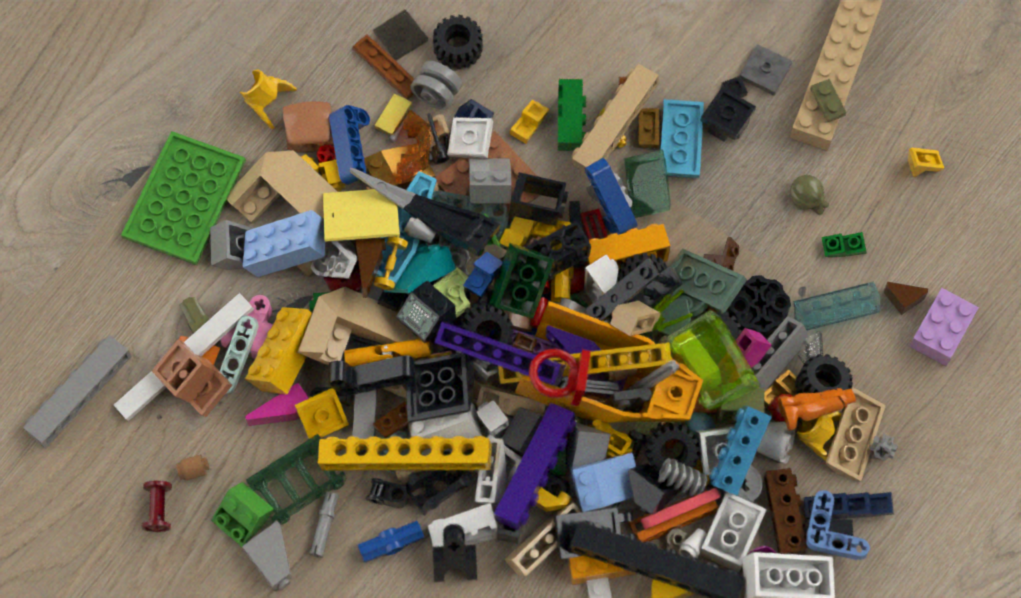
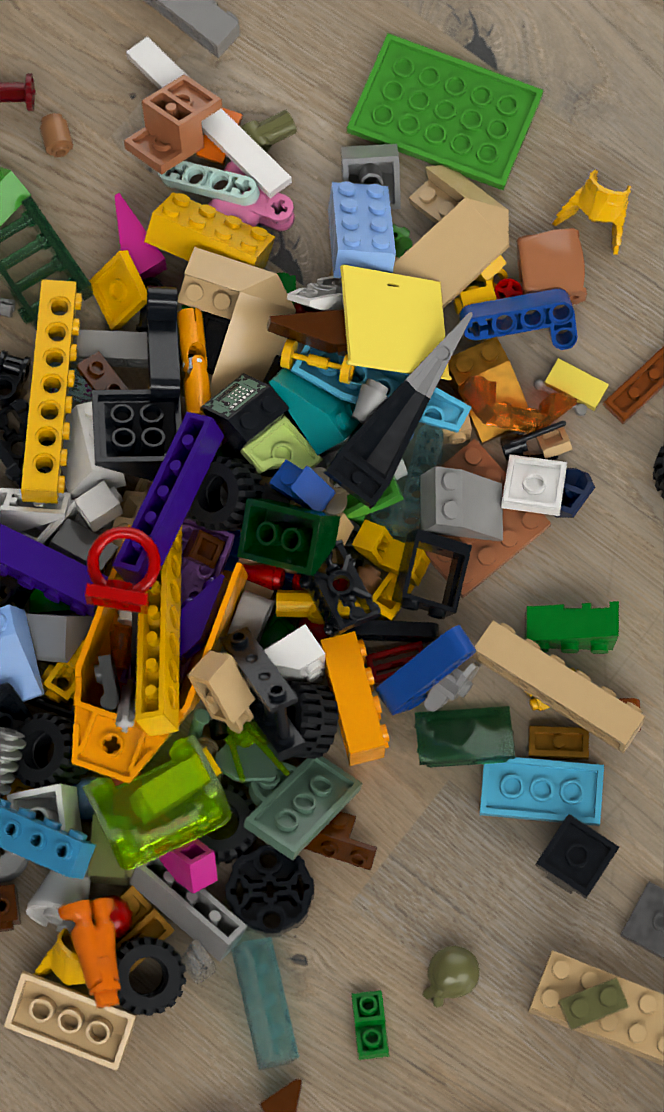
camera: 90 degrees right, 5 degrees up
(436, 85) = (611, 434): light grey wheel -> none
(529, 121) = (568, 573): yellow slope -> none
(735, 86) = (628, 874): black tile -> none
(883, 447) = (47, 1060): light grey gear -> none

